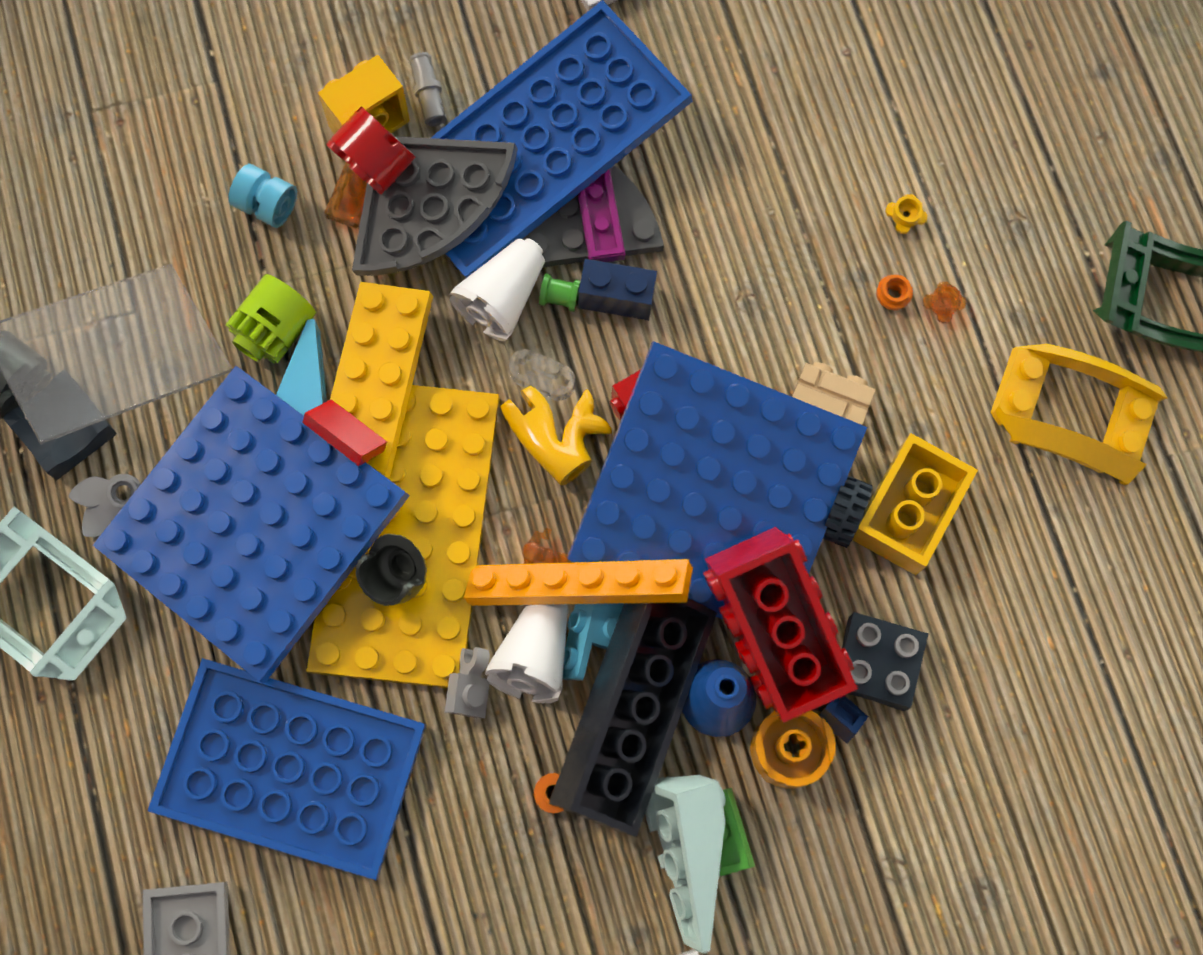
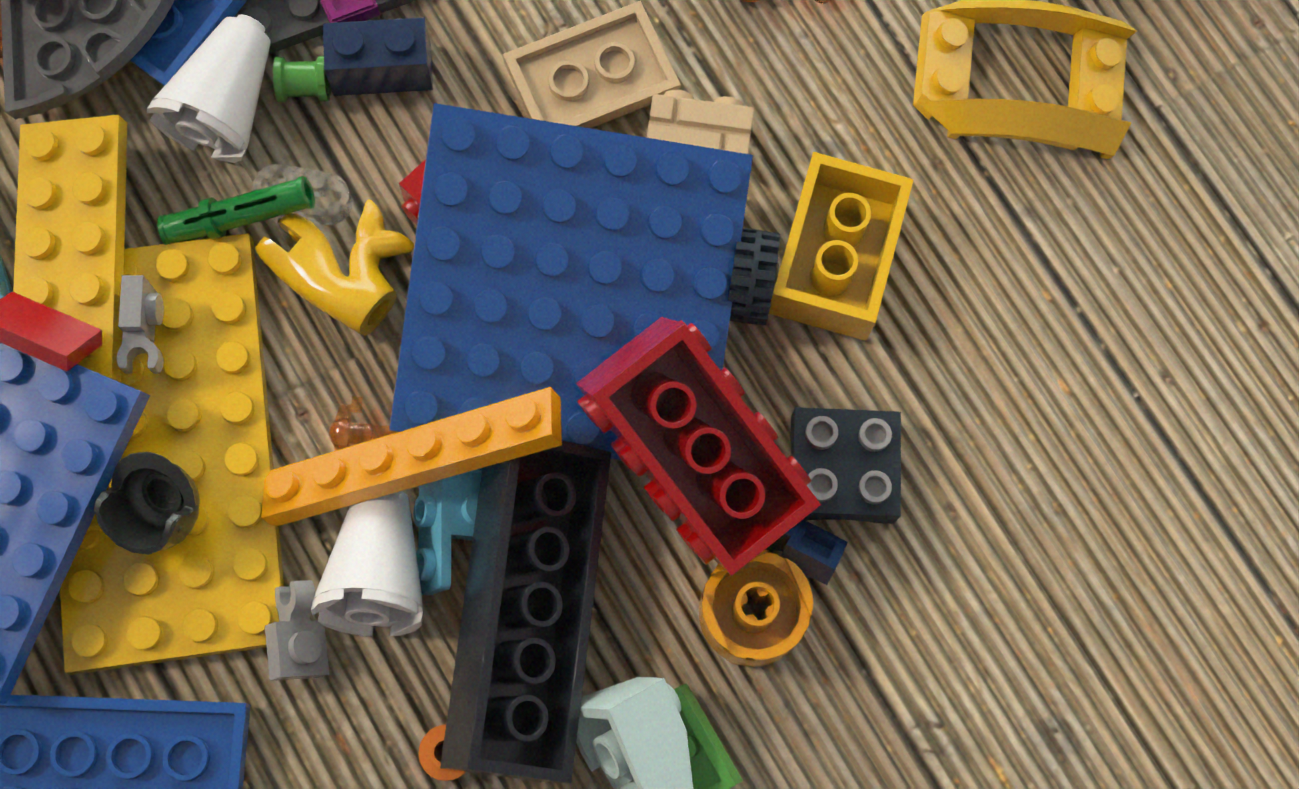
camera: 15 degrees left, 0 degrees up
(414, 433) = (138, 314): none -> light grey plate
(479, 378) = (215, 217): none -> green pin
(713, 711) = (637, 585): blue cone -> none
(765, 335) = (592, 70): none -> tan plate

